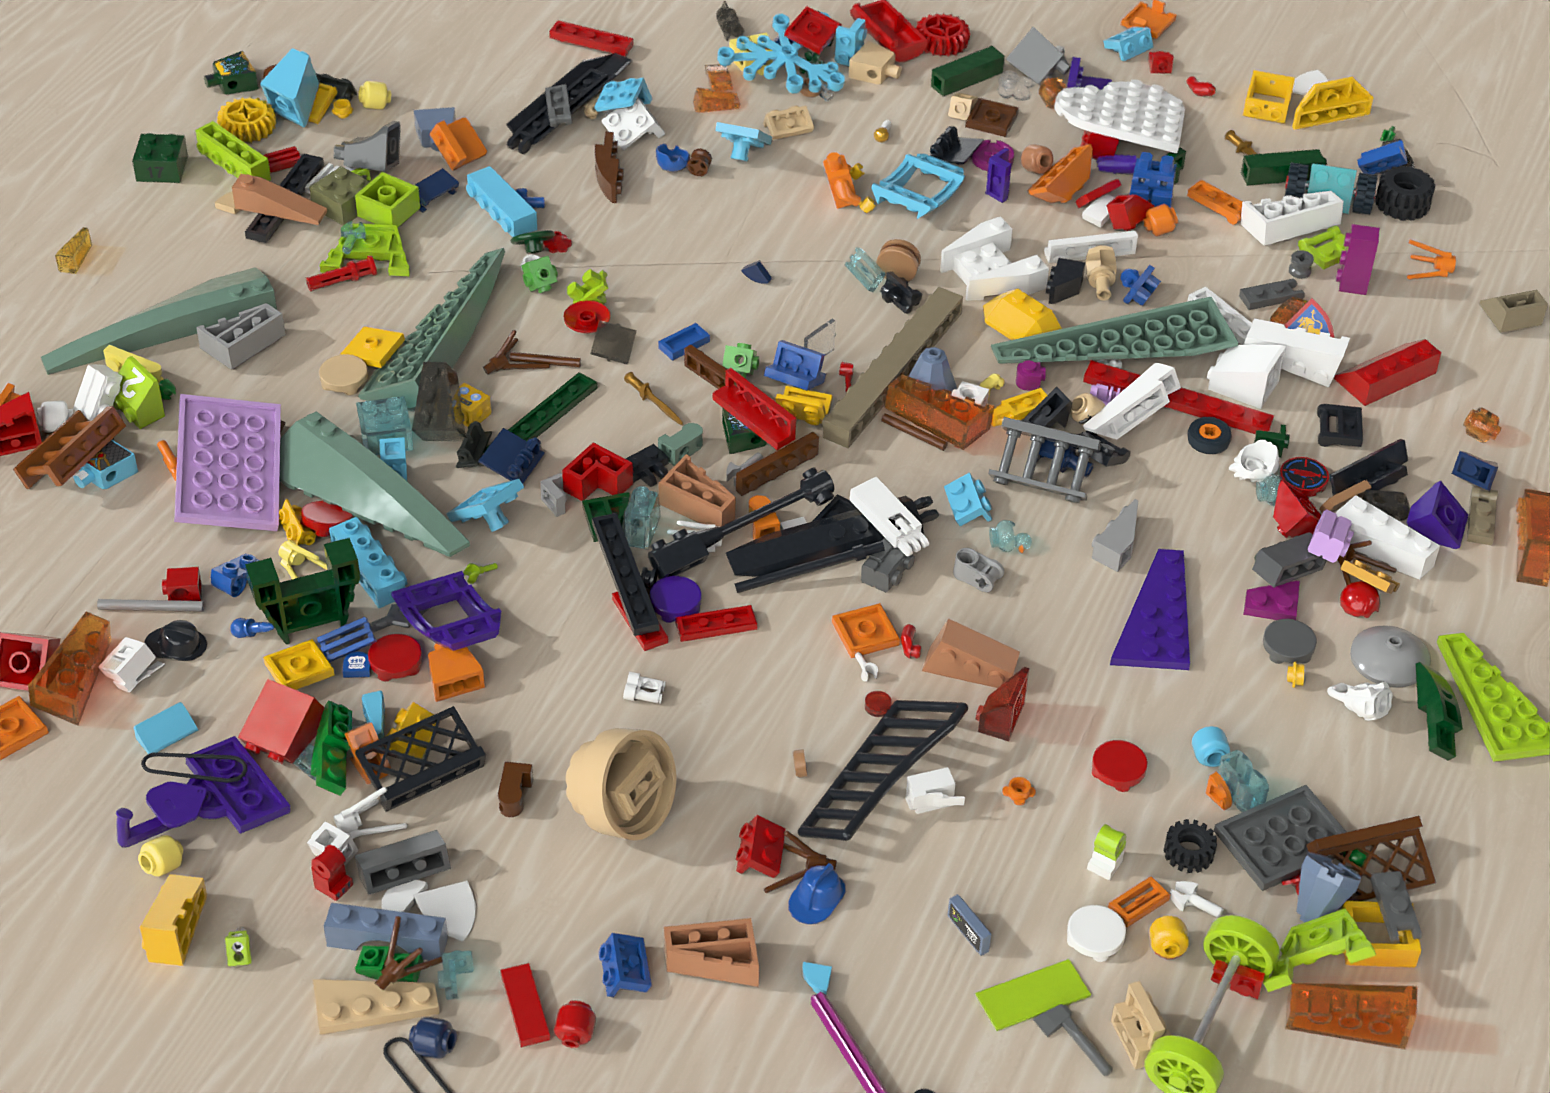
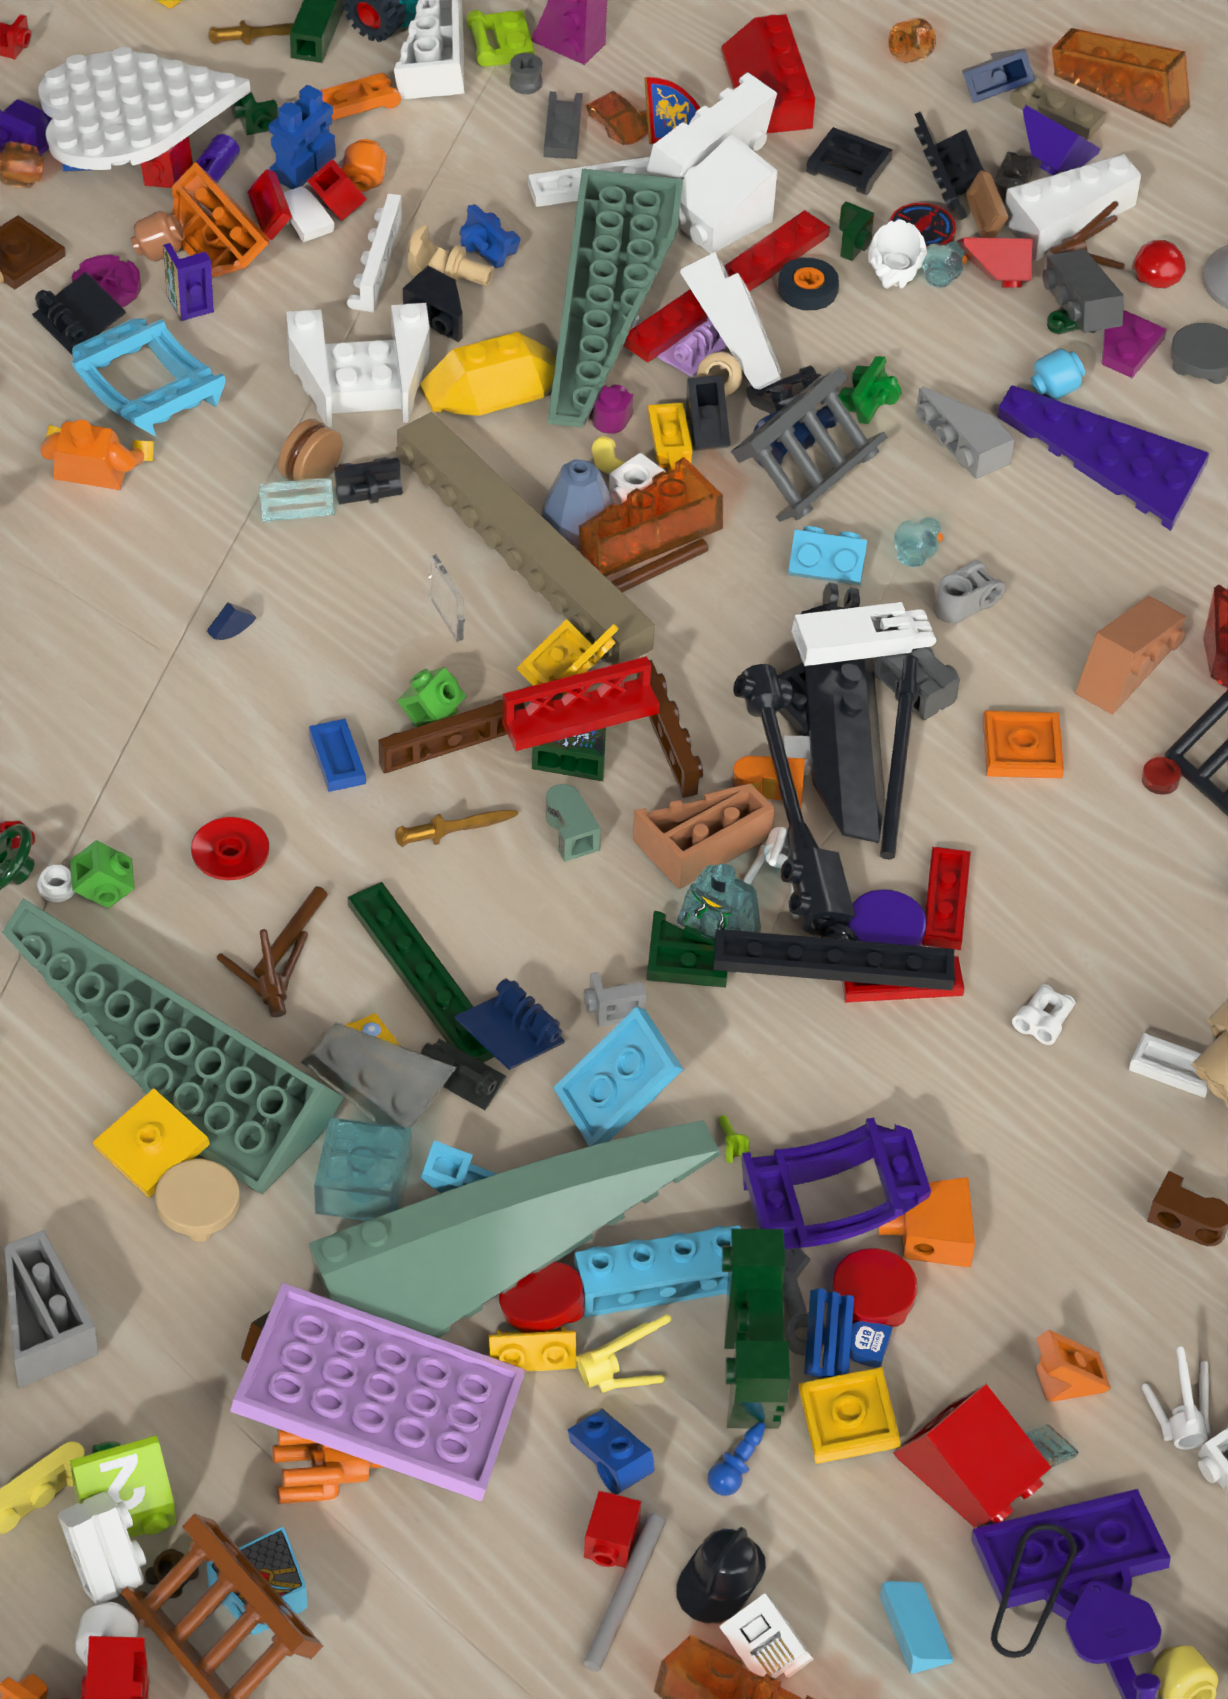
camera: 70 degrees left, 5 degrees up
(331, 748) = (1063, 1417): green slope -> none
(374, 711) = (997, 1341): medium azure slope -> none
(408, 717) = (1033, 1305): yellow bracket -> none
(430, 778) = (1137, 1298): black fence -> none
(594, 282) = (180, 809): lime hips -> none
(597, 469) = (599, 931): red brick -> none
(613, 342) = (303, 835): clear smoke piece -> none
(647, 462) = (586, 883): black hinge -> none
(732, 469) = (645, 785): light grey bar -> none
(796, 366) = (491, 637): blue bracket -> none
(846, 370) = (502, 591): red hand -> none
(866, 667) = (1102, 768): white hand -> none
(907, 636) = (1077, 708): red arm -> none
(1128, 484) = (870, 390): none -> green hips
(1200, 88) = (90, 24): red arm -> none
(1207, 568) = (1058, 374): none -> medium azure head
(1331, 536) = (1078, 236): lavender brick -> none
(1375, 578) = (1135, 236): plate -> none

